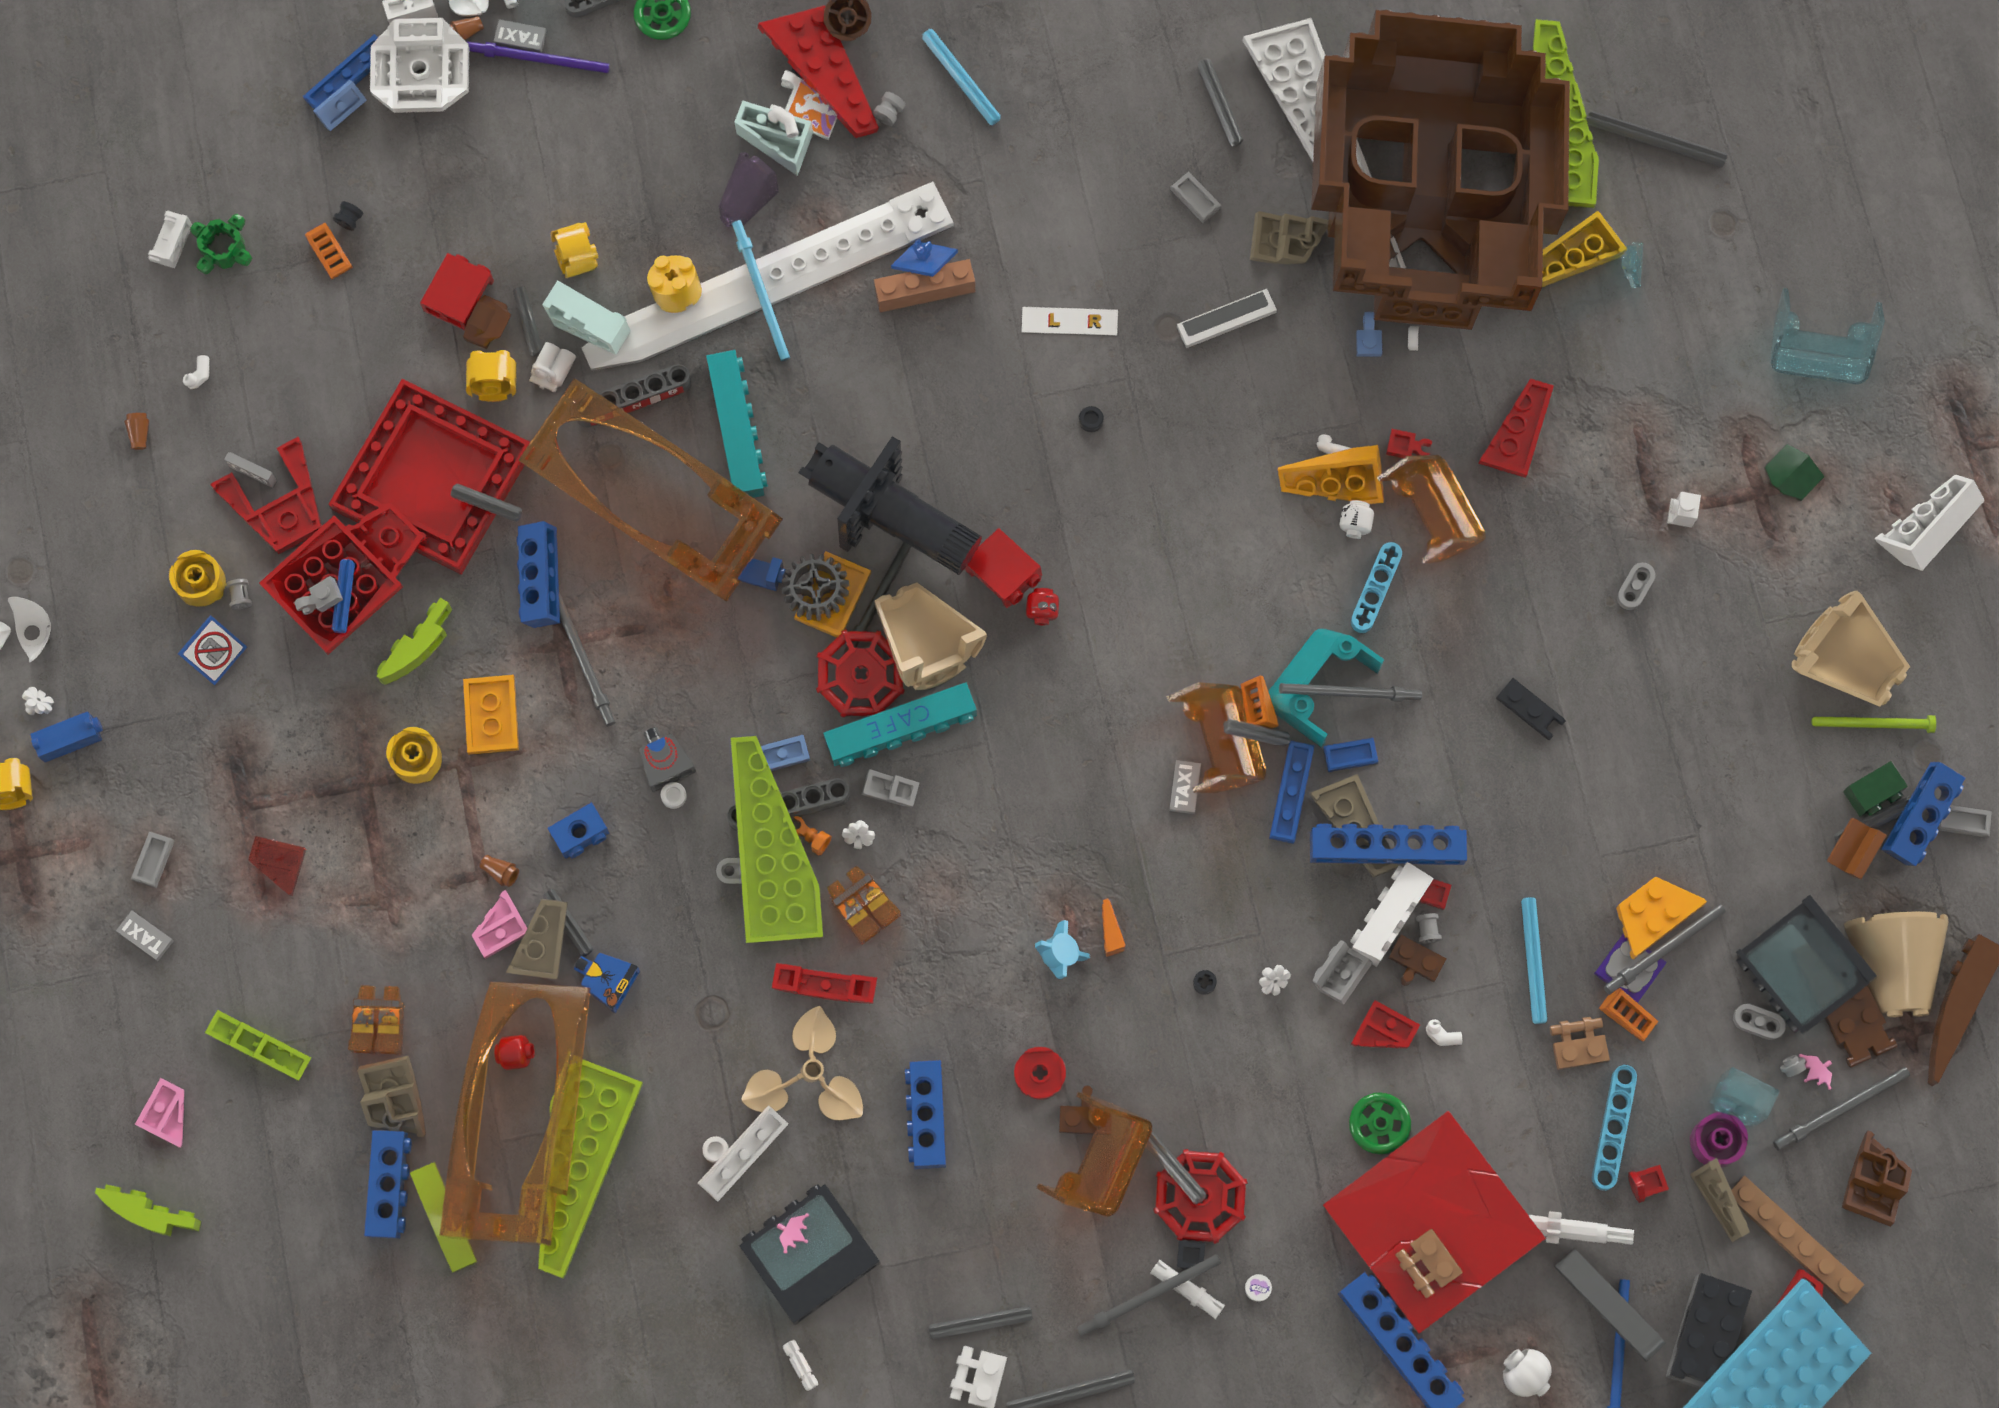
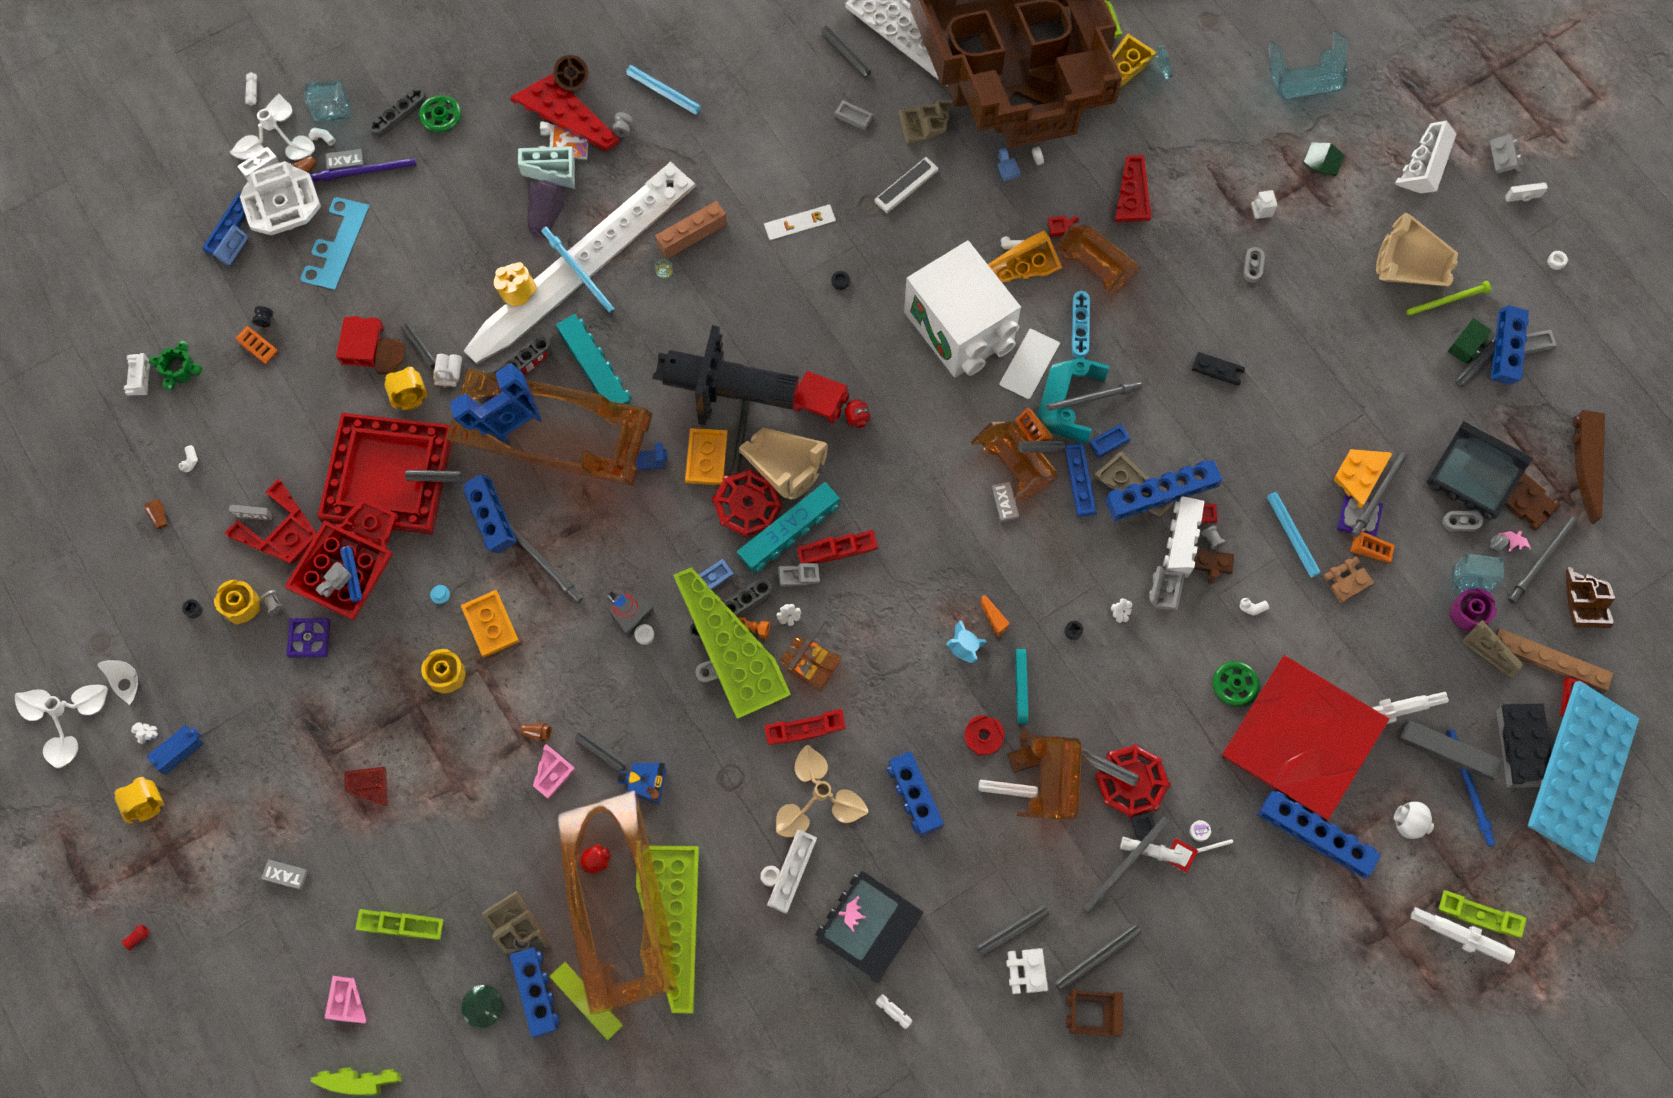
camera: 20 degrees left, 5 degrees down
(135, 562) = (197, 610): none -> black bush
(152, 859) = (271, 816): light grey tile -> none
(212, 650) = (265, 649): piece -> none
(267, 653) = (308, 637): none -> dark purple piece
(321, 1178) = (482, 1006): none -> clear green dish
(377, 1022) = (484, 868): clear orange hips -> none
(411, 653) = (416, 599): lime slope -> none
(443, 655) = (440, 594): none -> medium azure plate
(474, 156) = (339, 249): none -> medium azure piece
(542, 944) = (587, 771): dark tan wing -> none
(574, 250) = (435, 285): yellow brick -> none
(583, 818) = (589, 672): blue brick -> none
(586, 318) = (459, 328): light aqua wedge -> none
(596, 454) = (503, 412): none -> blue wedge
(785, 117) = (552, 148): white arm -> none
(805, 587) = (680, 462): dark grey gear -> none
(871, 324) = (663, 268): none -> clear light blue tile
(924, 258) = (684, 211): blue piece -> none
(951, 771) = (838, 548): none -> red slope
(1043, 1149) = (1008, 788): none -> white axle
(1110, 1029) = (1021, 686): none -> teal beam
(1223, 520) = (962, 310): none -> white brick
(1233, 1310) = (1190, 853): none -> piece
(1290, 615) = (1029, 363): none -> white sticker
(1356, 519) = (1049, 283): white head -> none
(1385, 1029) = (1212, 617): red wing -> none
(1436, 1259) = (1319, 762): medium nougat plate -> none
(1608, 1139) = (1395, 637): medium azure beam -> none
(1647, 1182) = (1436, 657): red tile -> none
(1856, 848) = (1476, 383): dark orange panel -> none
(1904, 955) = (1541, 437): tan cone -> none

